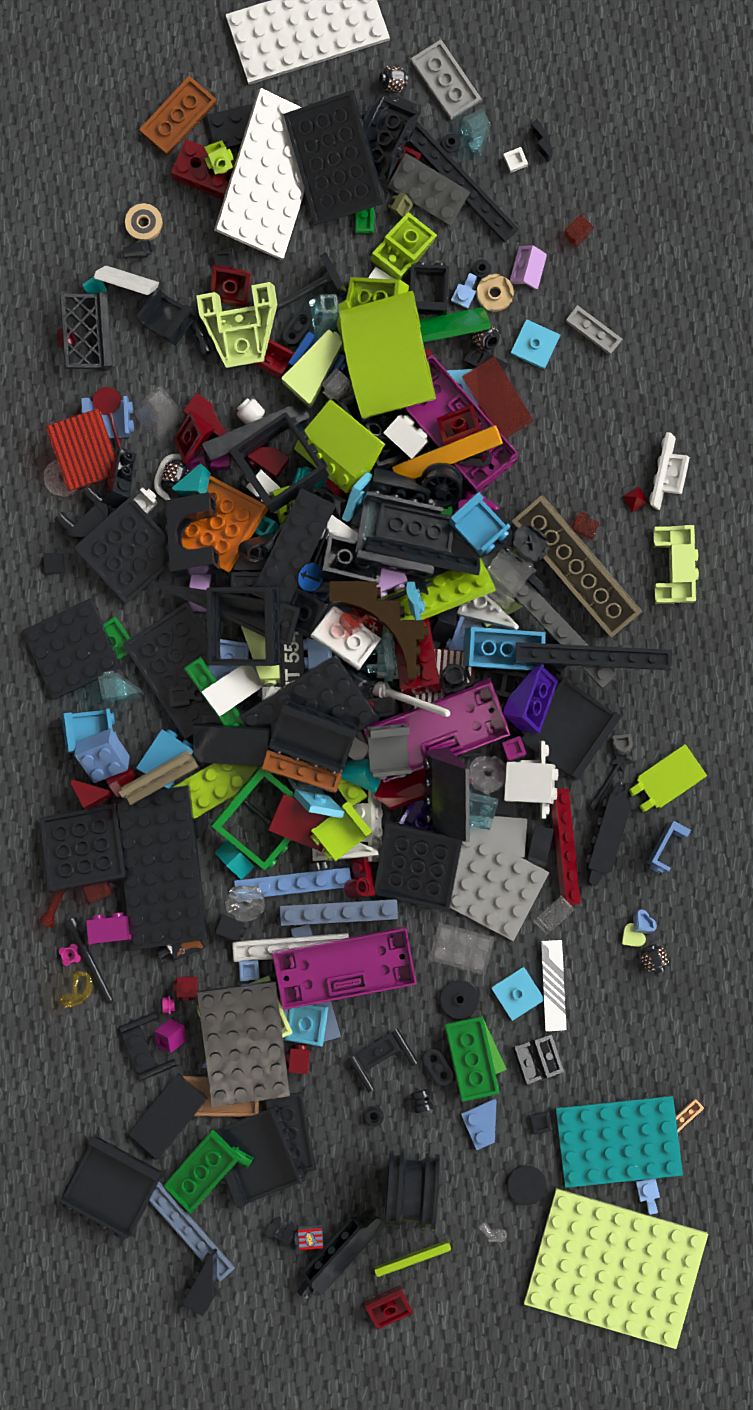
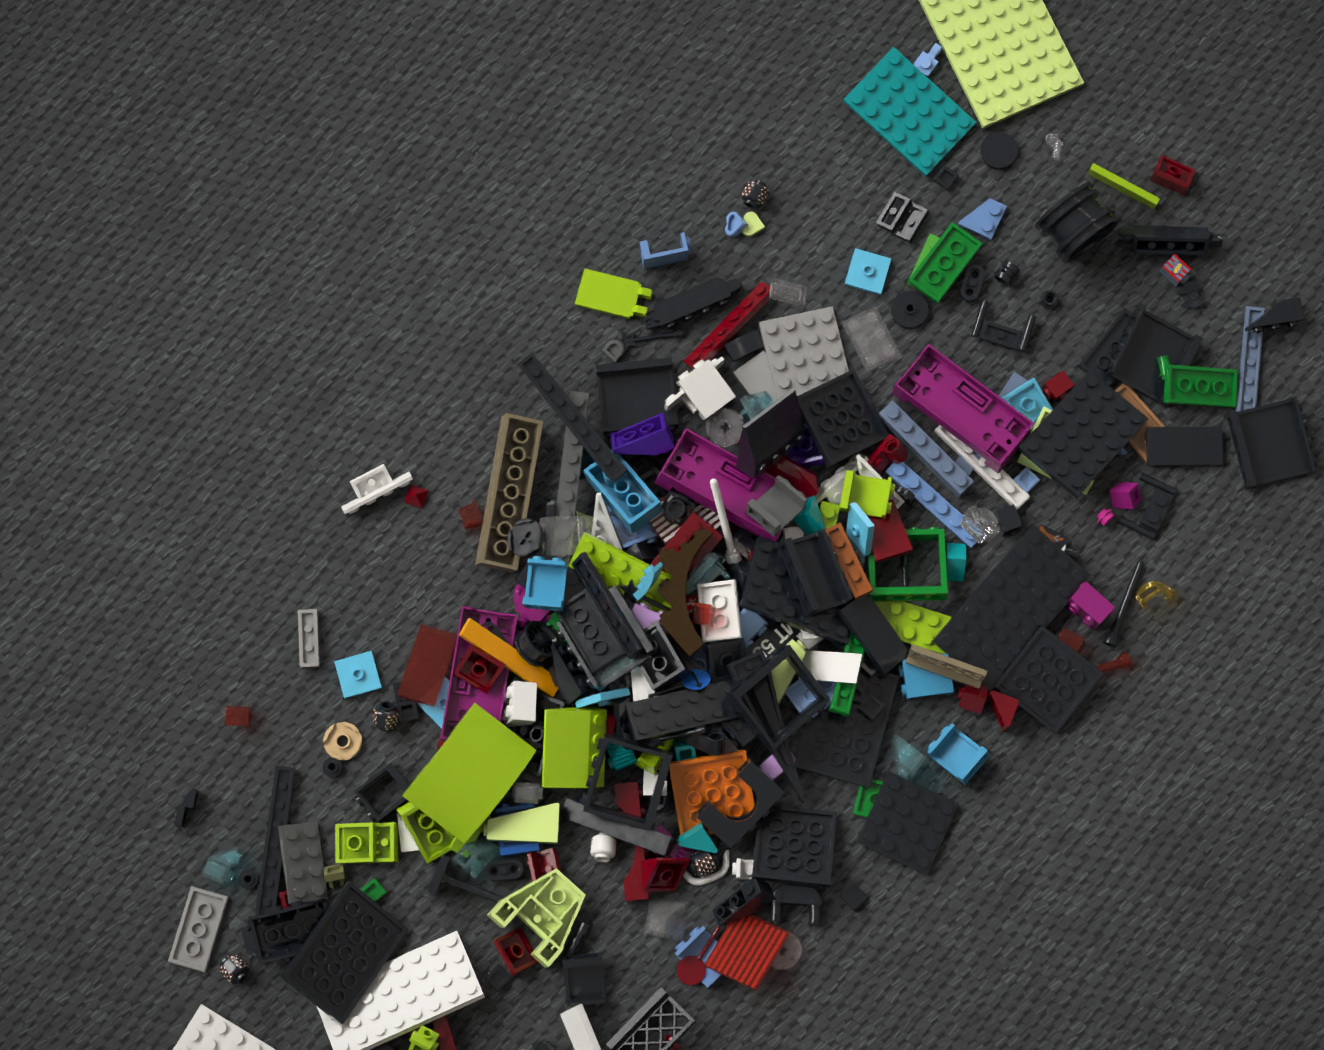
camera: 130 degrees left, 5 degrees down
(64, 954) = (1140, 620): dark pink plate -> none
(102, 755) = (967, 723): medium blue brick -> none
(186, 987) = (1080, 513): dark red brick -> none
(454, 324) = (396, 747): green tile -> none
(464, 294) = (364, 763): light blue plate -> none
(513, 749) = (690, 422): magenta panel -> none
(515, 160) = (220, 816): white plate -> none
(528, 266) = (300, 732): lavender panel -> none
(553, 985) = (838, 251): white sticker -> none
(681, 564) = (439, 417): yellowish green bracket -> none
(688, 1113) = (845, 80): light nougat piece -> none

